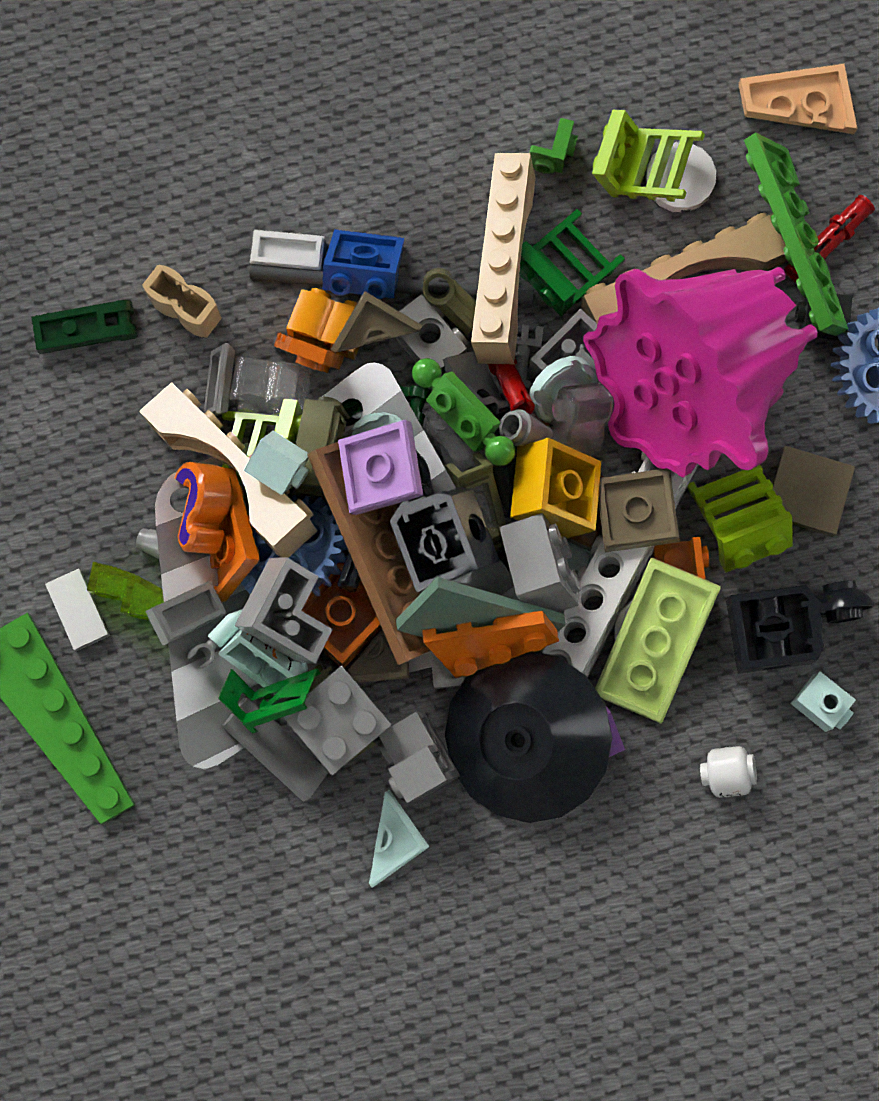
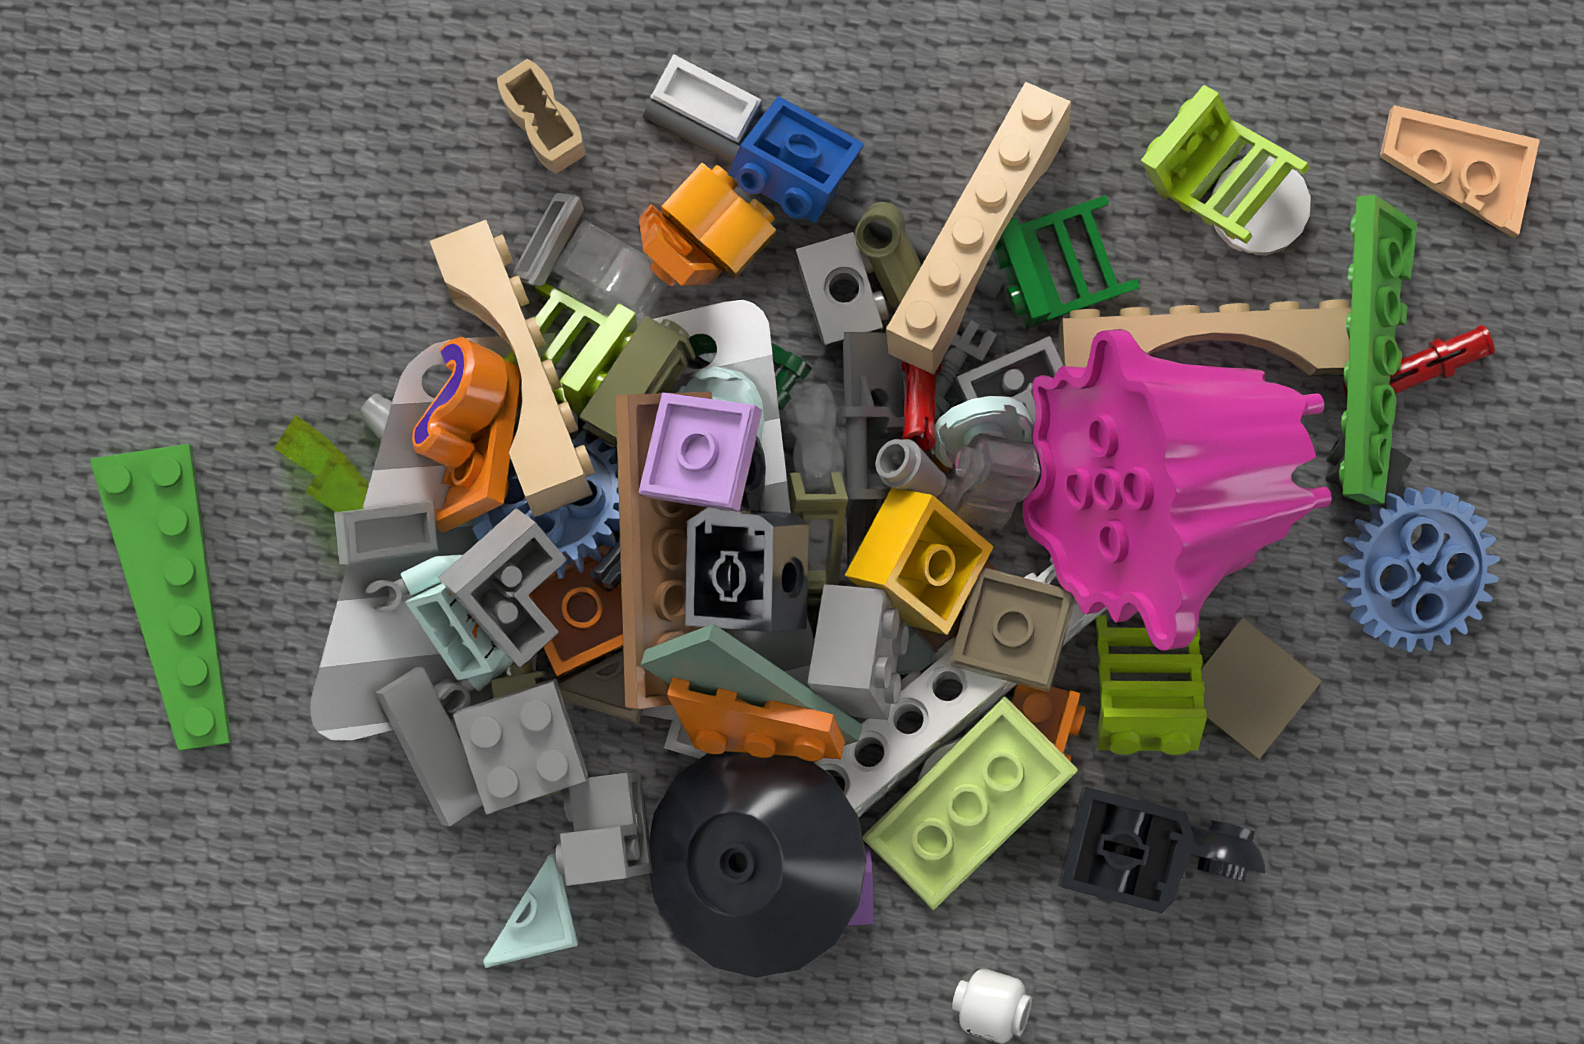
camera: 15 degrees right, 5 degrees up
(77, 610) = (253, 465): white tile -> none
(83, 326) = (402, 96): dark green plate -> none
(278, 463) = (575, 392): light aqua brick -> none
(291, 687) = (476, 682): green piece -> none
(372, 323) = (775, 247): dark tan tile -> none
(463, 411) = (840, 415): bright green plate -> none
(553, 160) = (1123, 102): bright green bracket -> none
(824, 702) = (1150, 968): light aqua brick -> none

